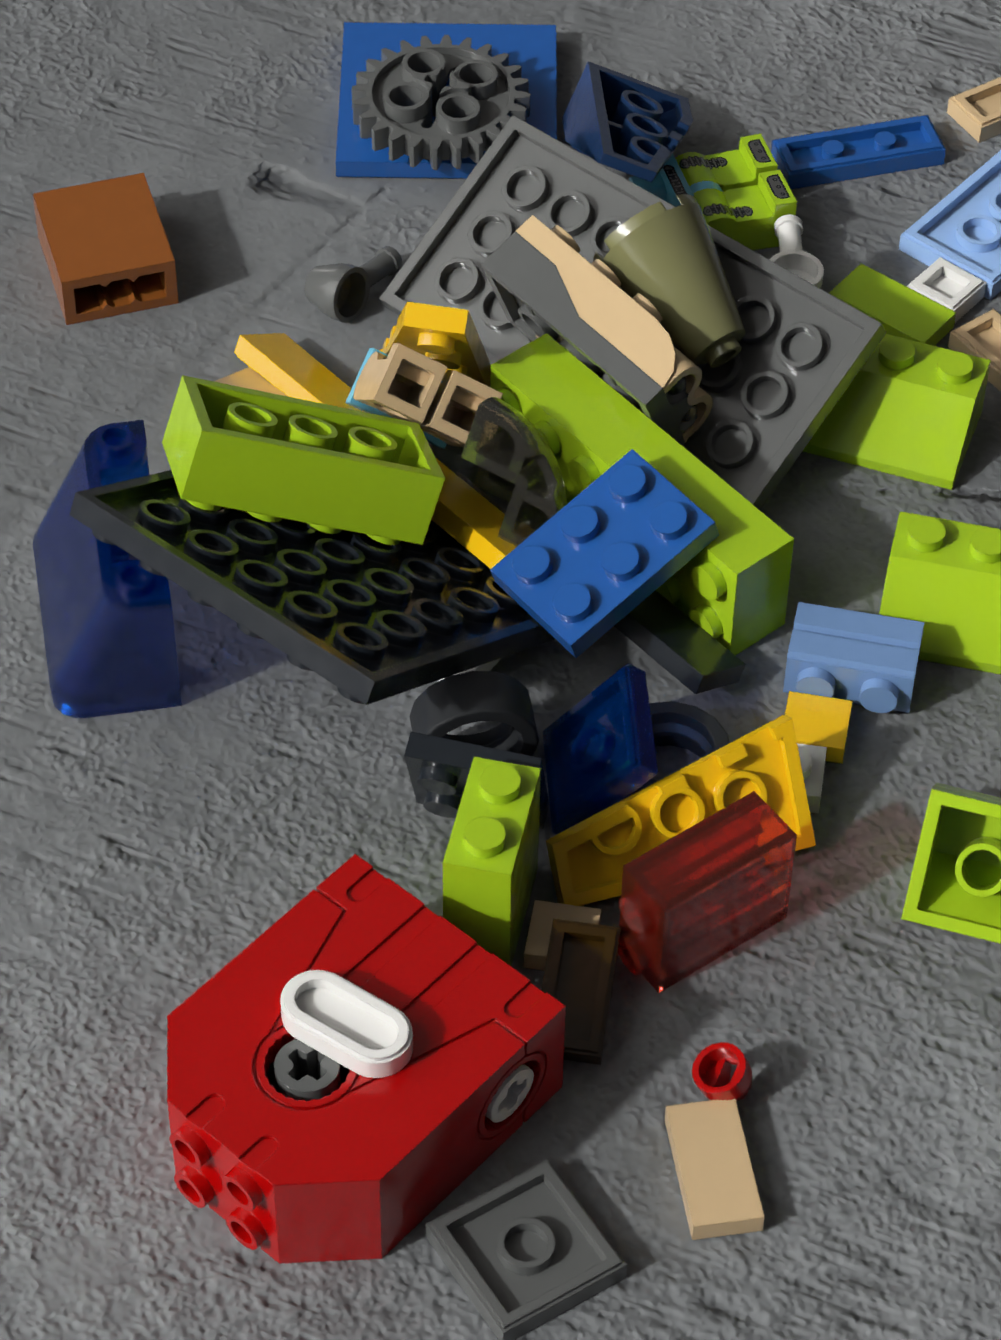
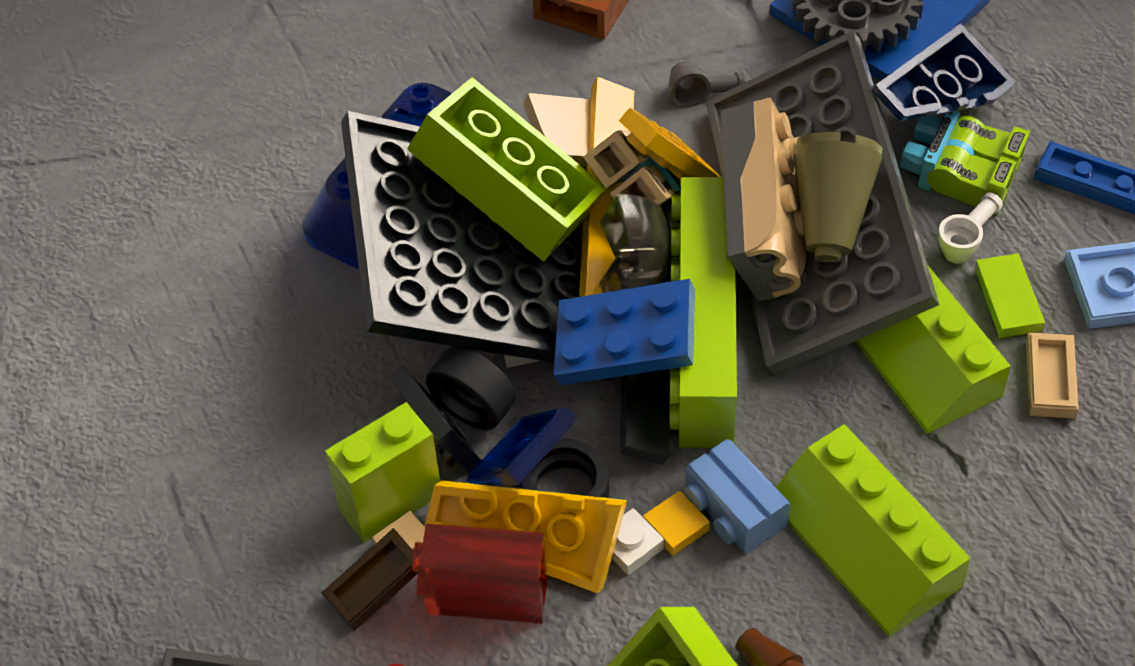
camera: 45 degrees right, 5 degrees up
(338, 1160) = (197, 533): red piece -> none
(346, 1023) = (188, 505): white tile -> none
(950, 287) = (1061, 304): white tile -> none

